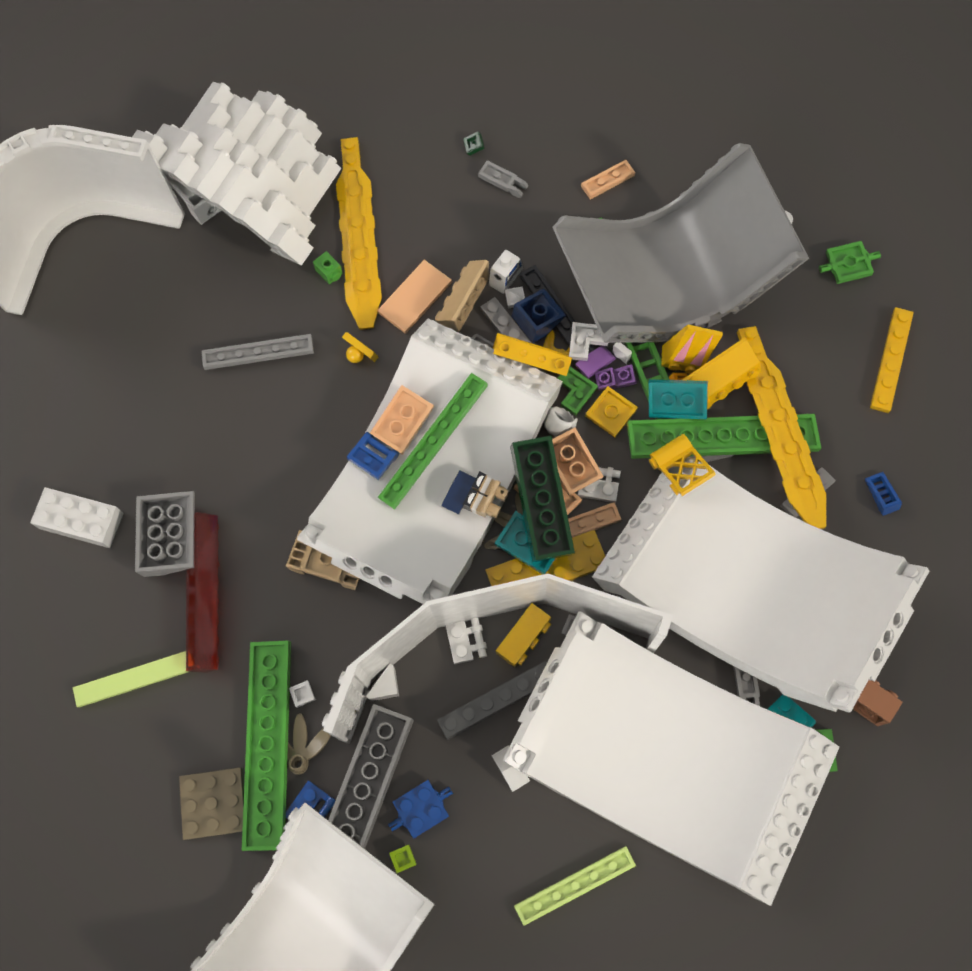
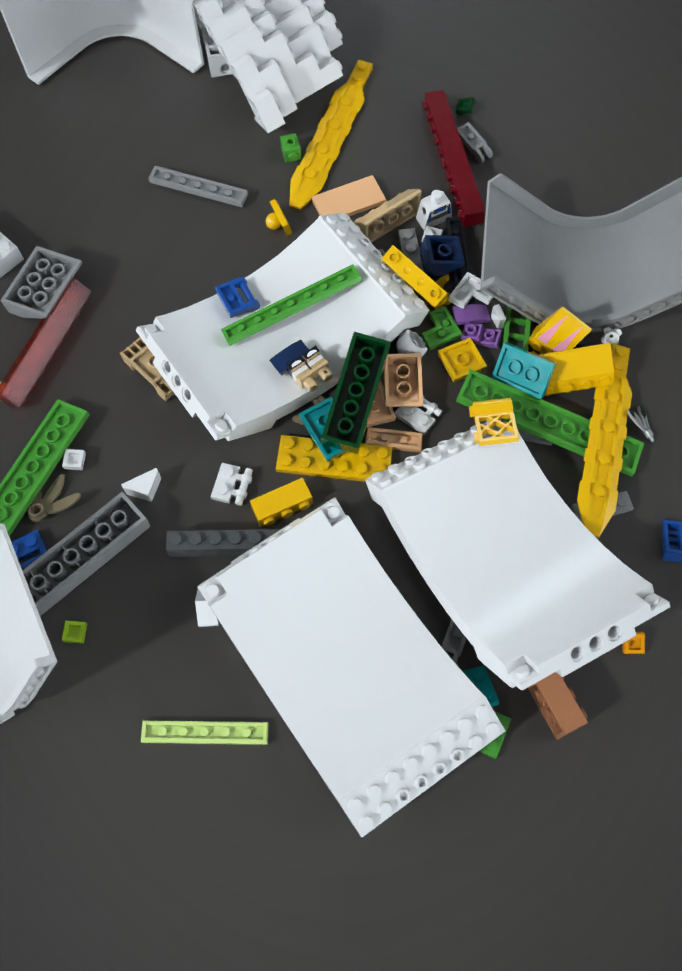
camera: 25 degrees right, 5 degrees down
(402, 419) = (277, 279): light nougat plate -> none
(420, 809) = (113, 599): blue plate -> none
(483, 603) = (202, 438): white panel -> none
(494, 206) = (453, 159): none -> dark red brick
(608, 179) = (564, 179): light nougat tile -> none
(737, 323) = (607, 339): none -> white plate
(801, 393) = (641, 421): none -> light grey piece

